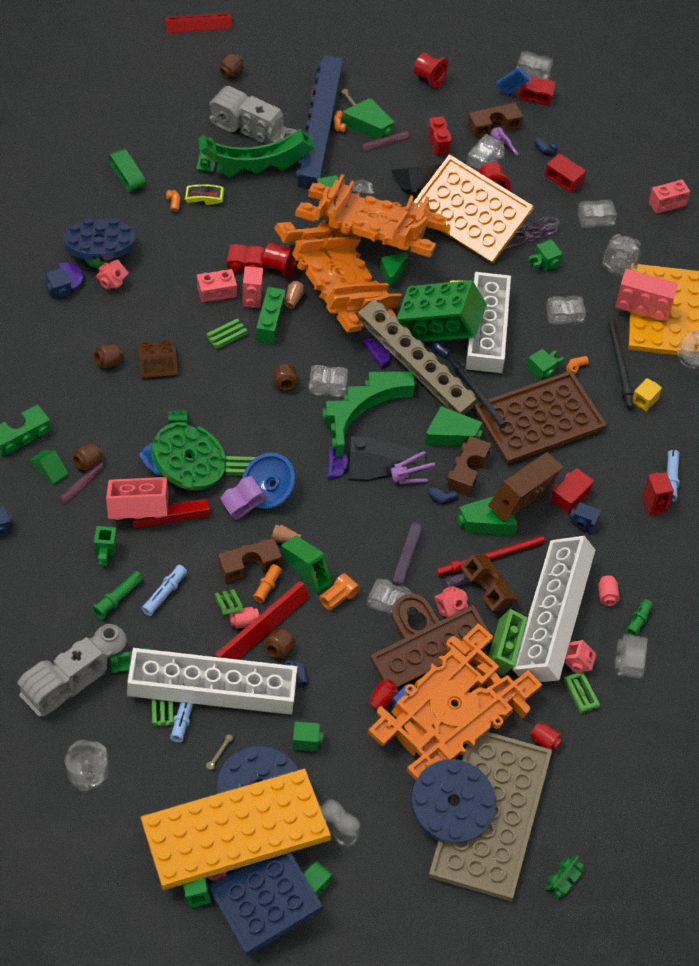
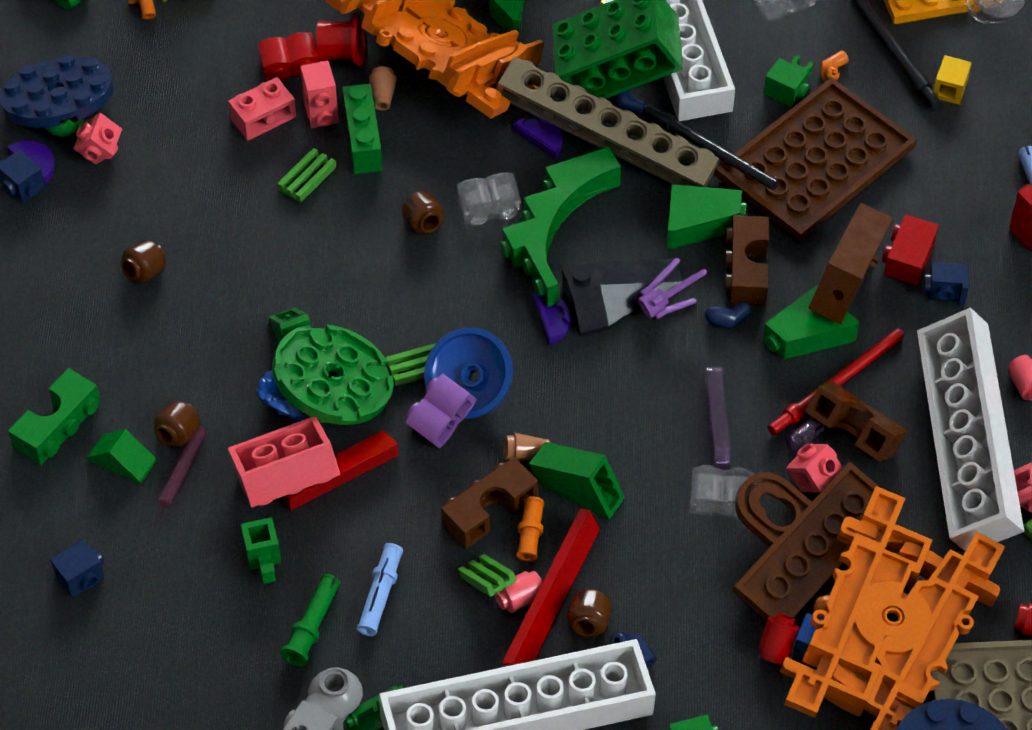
camera: 15 degrees left, 0 degrees up
(157, 359) = (220, 243): reddish brown bracket -> none
(343, 588) = (644, 502): orange piece -> none
(507, 640) = (925, 508): bright green brick -> none

